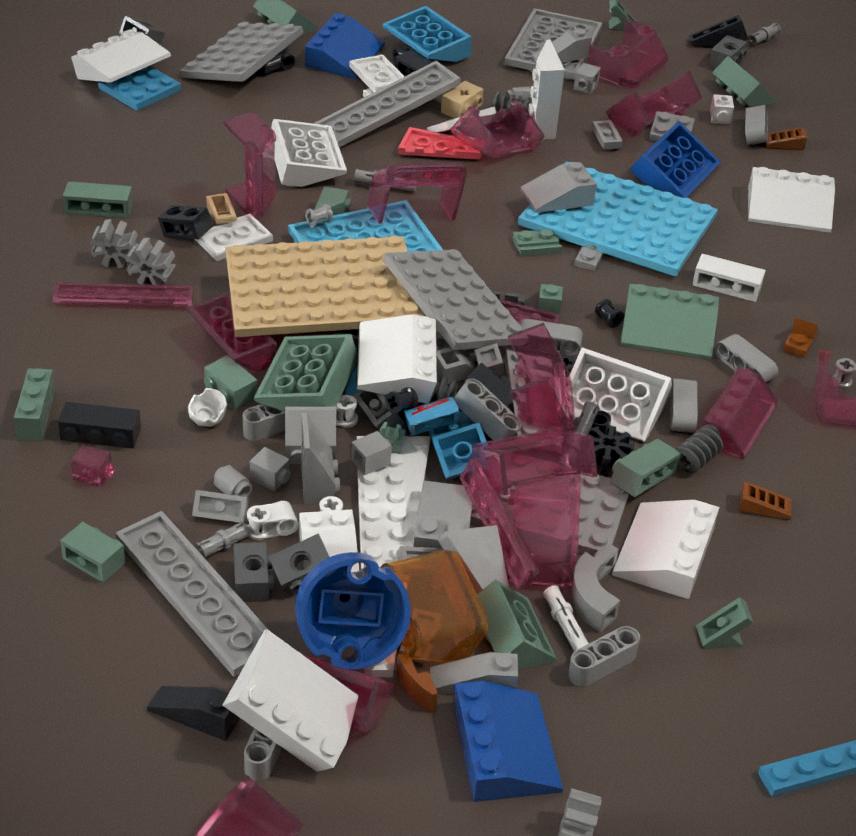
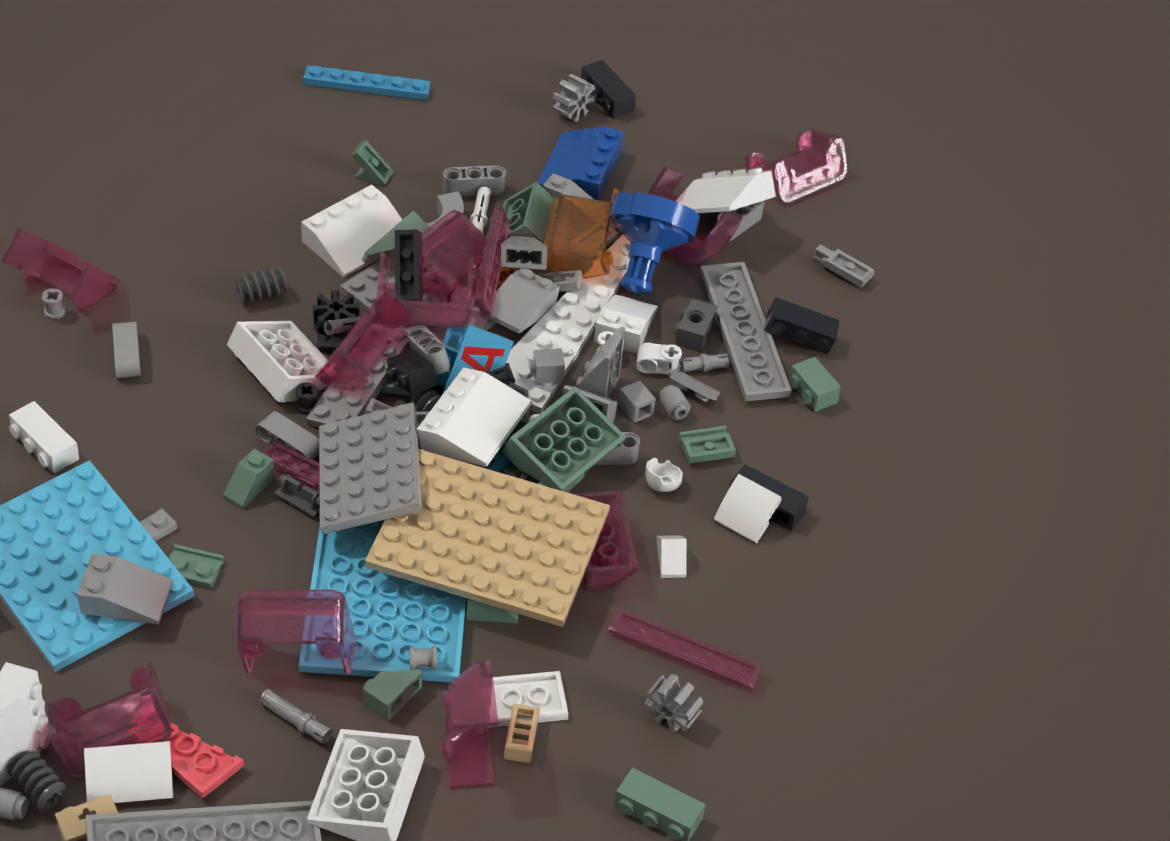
camera: 155 degrees left, 5 degrees up
(34, 404) = (821, 537): sand green brick -> none
(92, 466) = (789, 459): clear pink brick -> none
(109, 722) = (844, 265): none -> light grey hinge
(113, 401) = (747, 508): none -> white slope
(130, 603) = (801, 325): none -> black brick
(150, 262) = (644, 659): light grey gear -> none
(170, 360) = (672, 556): none -> white slope
(180, 456) = (707, 444): none -> sand green plate
(185, 222) = (582, 715): black brick -> none
(196, 708) = (779, 250): black slope -> none
(231, 380) = (633, 495): sand green brick -> none
(286, 561) = (658, 301): dark grey brick -> none
(394, 436) = (523, 378): sand green tile -> none
(563, 454) = (408, 265): none -> black brick
(608, 312) = (205, 443): black bush -> none
(608, 522) = (387, 242): none -> sand green slope
(645, 467) = (322, 278): sand green brick -> none
(670, 321) = (154, 414): sand green slope -> none
(683, 406) = (218, 334): light grey beam -> none
(742, 411) = (192, 308): clear pink slope -> none
(757, 499) = (252, 244): dark orange slope -> none
(801, 337) = (40, 357): dark orange slope -> none

